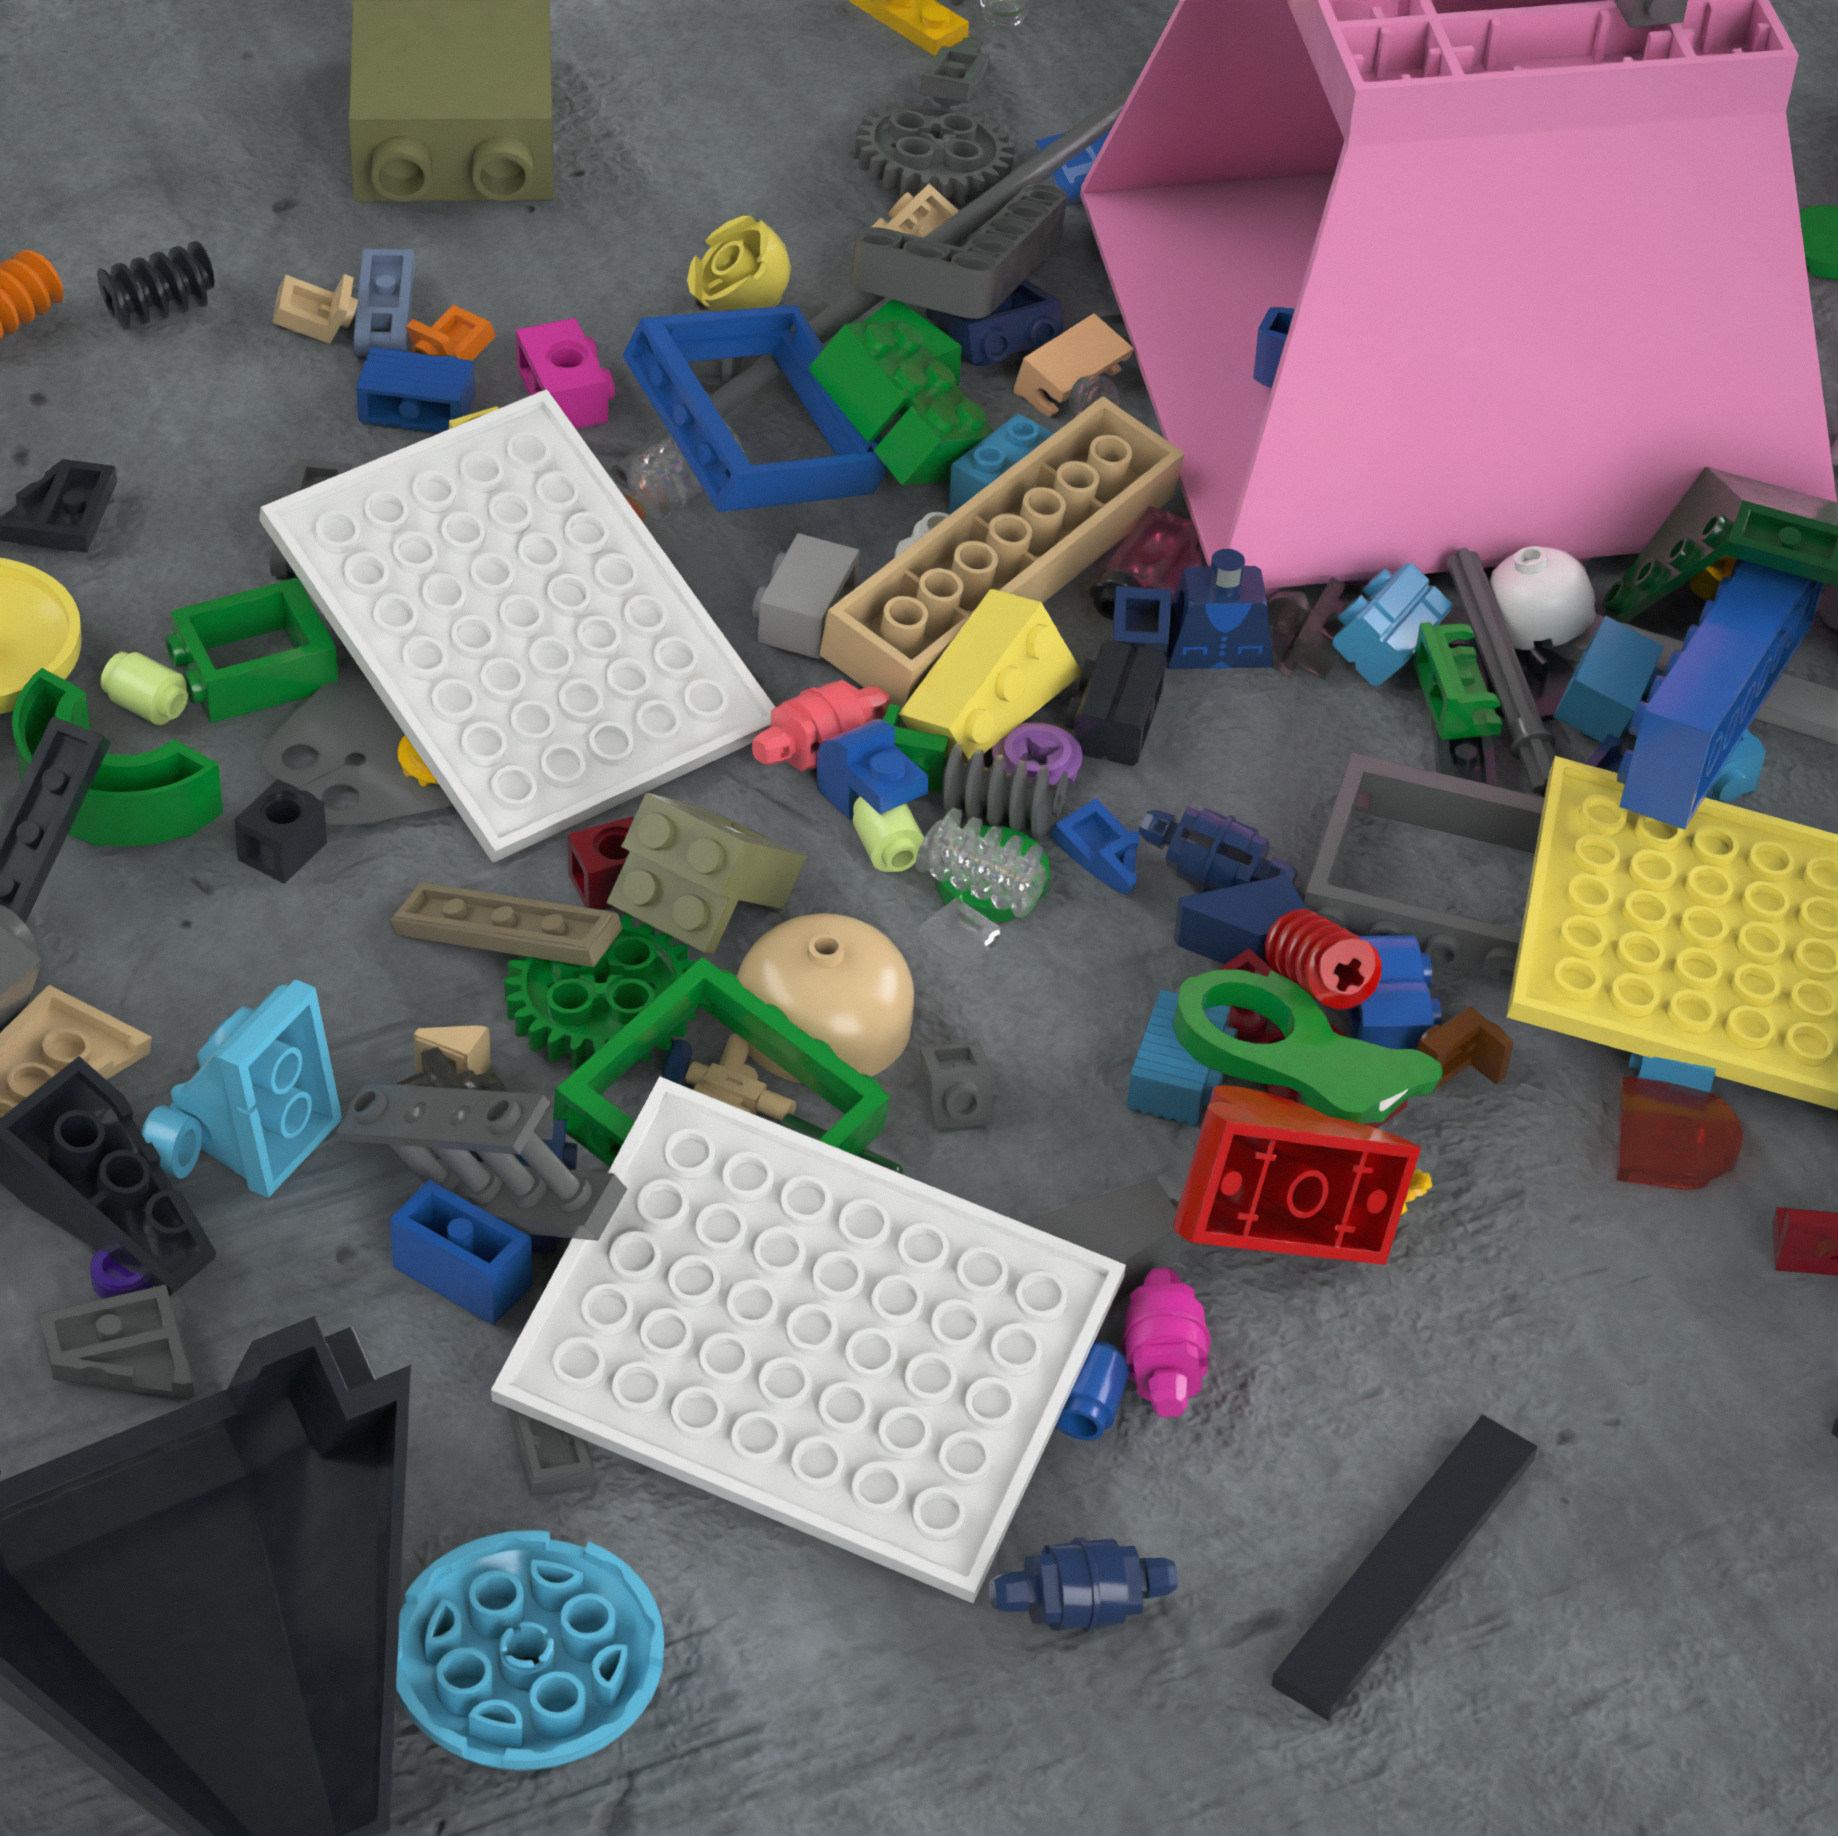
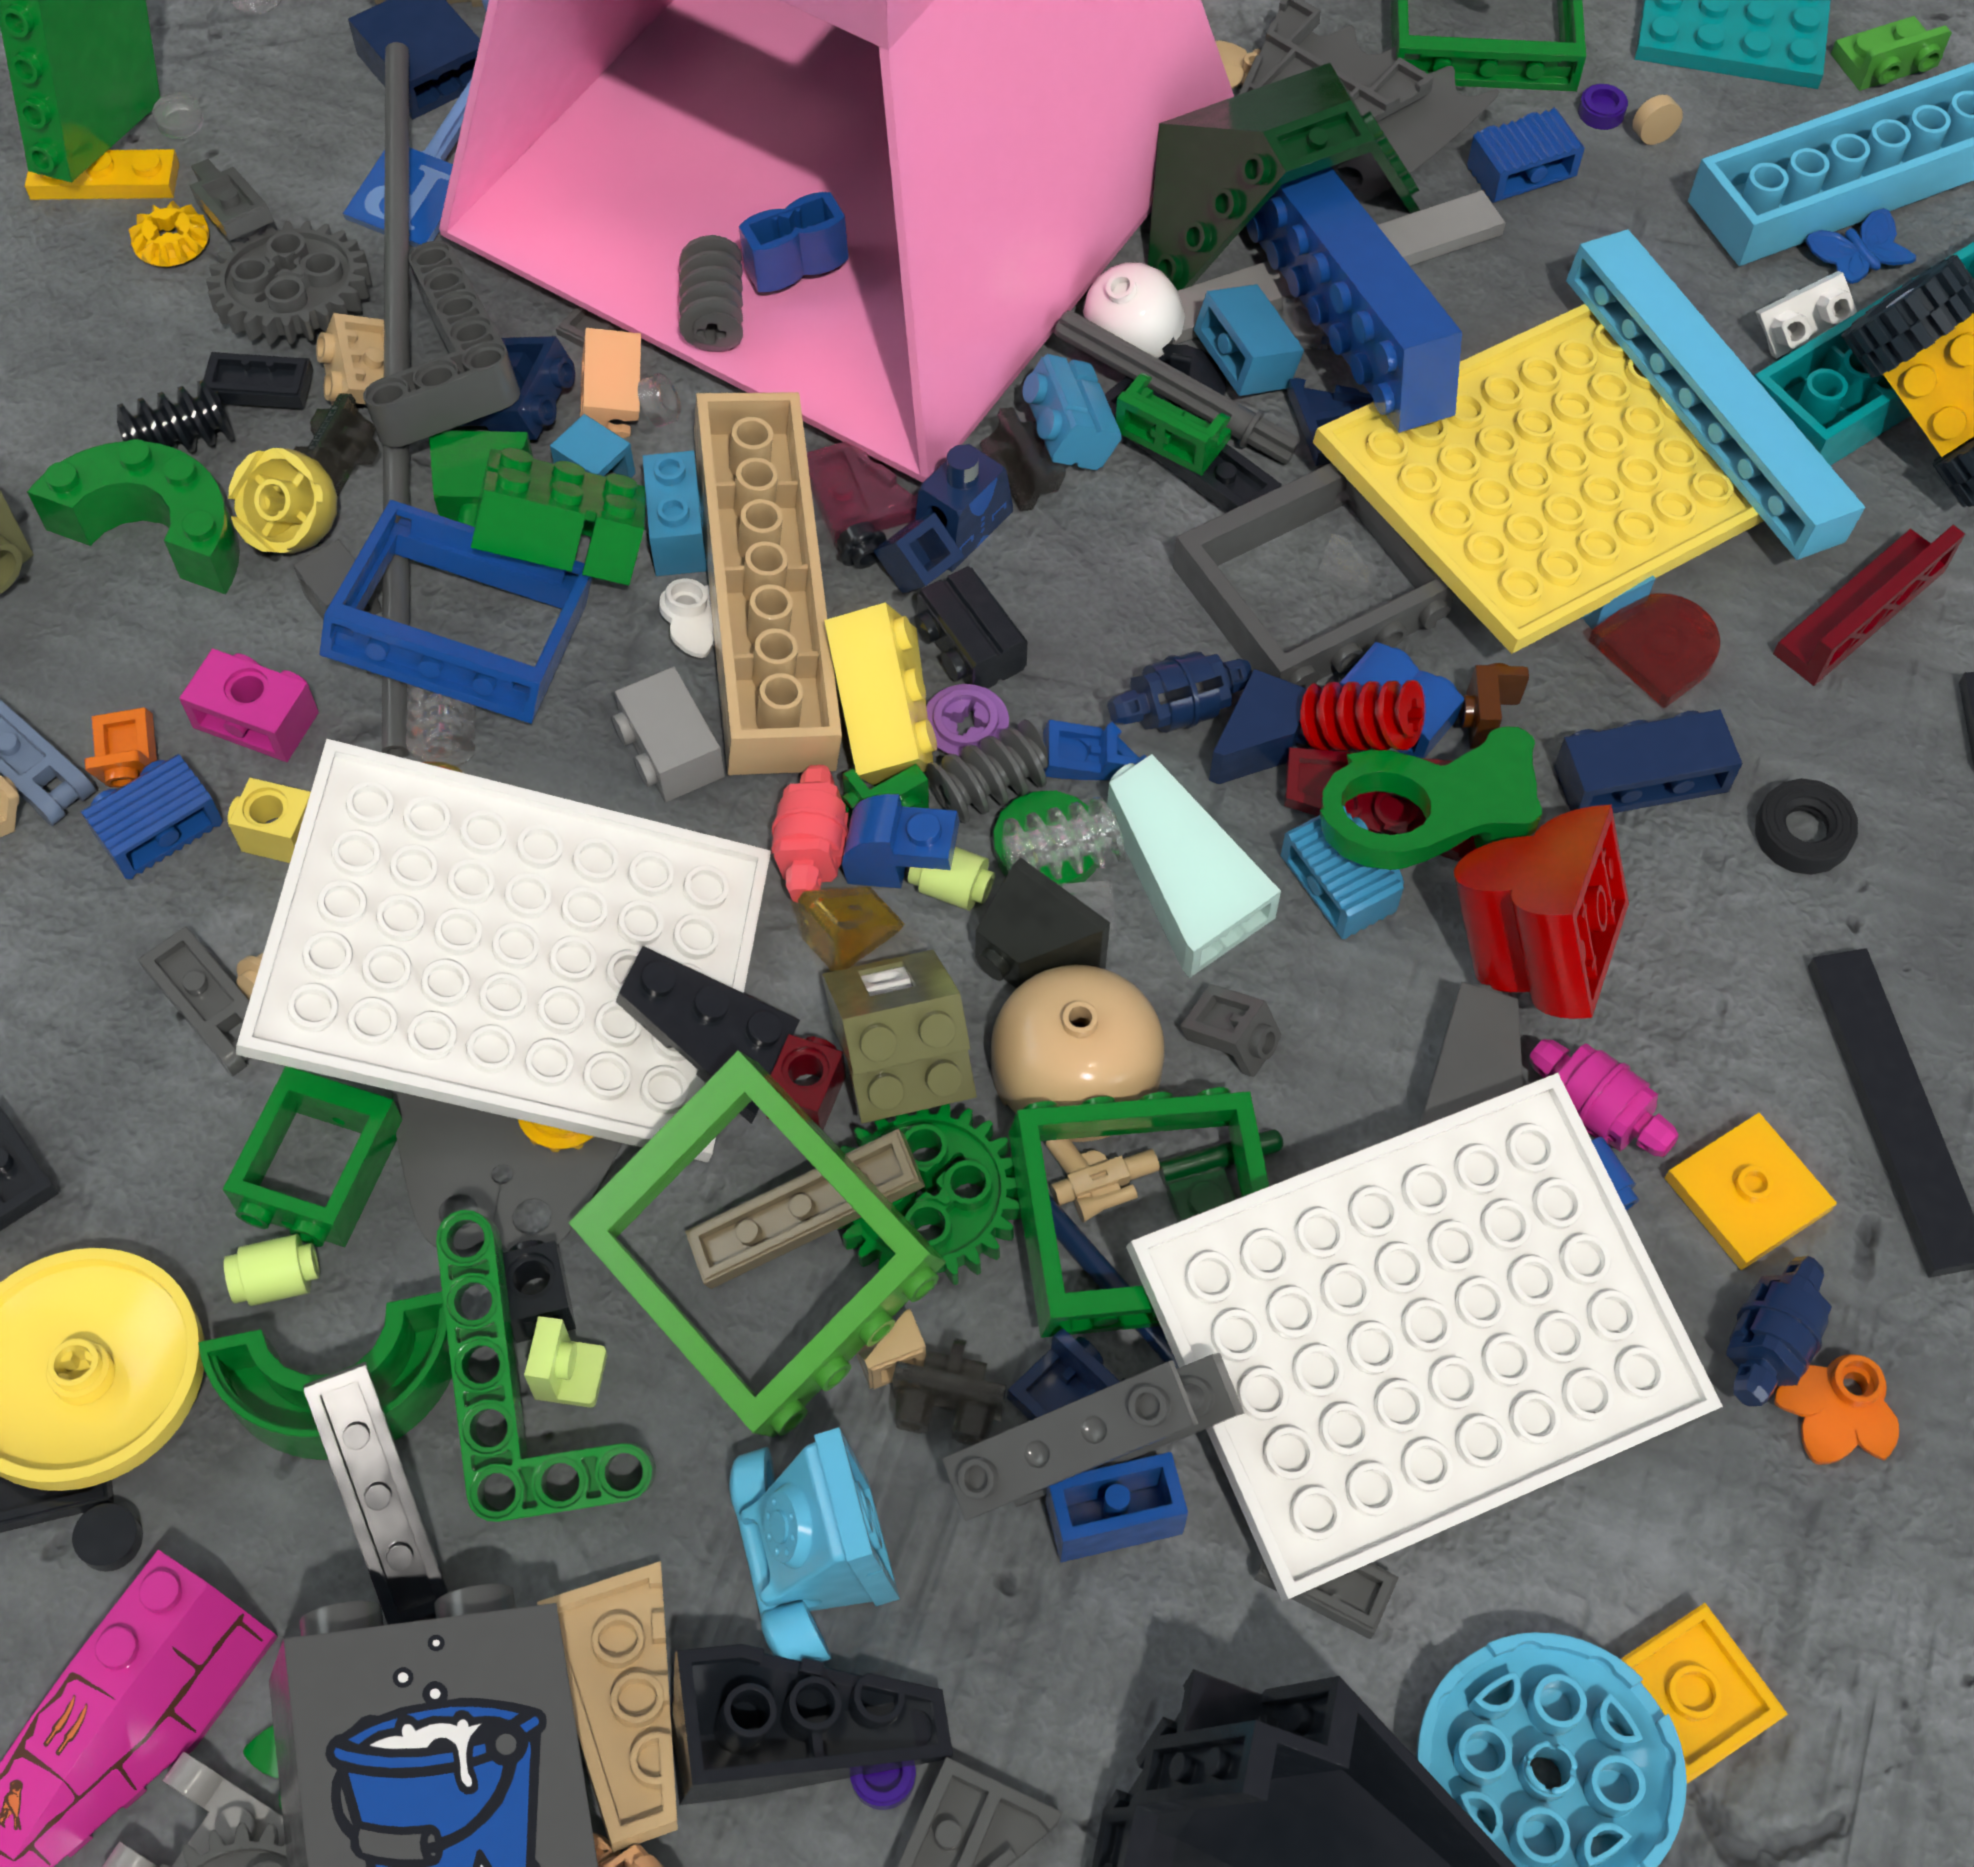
camera: 45 degrees left, 15 degrees up
(179, 849) = (503, 1395): none -> green beam
(236, 876) = (563, 1368): none -> yellowish green bracket
(460, 993) = (860, 1322): none -> bright green window
(588, 765) = (703, 1017): none -> black wing
(664, 198) = (149, 484): none -> green brick
(701, 1729) = (1705, 1689): none -> yellow plate
(736, 181) = (177, 420): none -> black piece
(774, 797) = (845, 924): none -> clear yellow slope
(821, 272) = (341, 440): none -> clear smoke hips
(832, 196) = (259, 379): none -> black plate
(879, 74) = (169, 248): none -> yellow gear
(887, 891) = (1037, 928): none -> pearl dark grey slope
(995, 389) = (594, 448): none -> dark azure panel
(1062, 965) = (1189, 867): none -> light aqua slope
(1063, 1688) = (1835, 1417): none -> orange plate
(1206, 348) = (711, 293): none -> dark grey piece
(1206, 1507) = (1750, 1191): none -> yellow plate
(1531, 1188) = (1649, 762): none -> dark blue brick
(1608, 1369) = (1819, 800): none -> black tyre

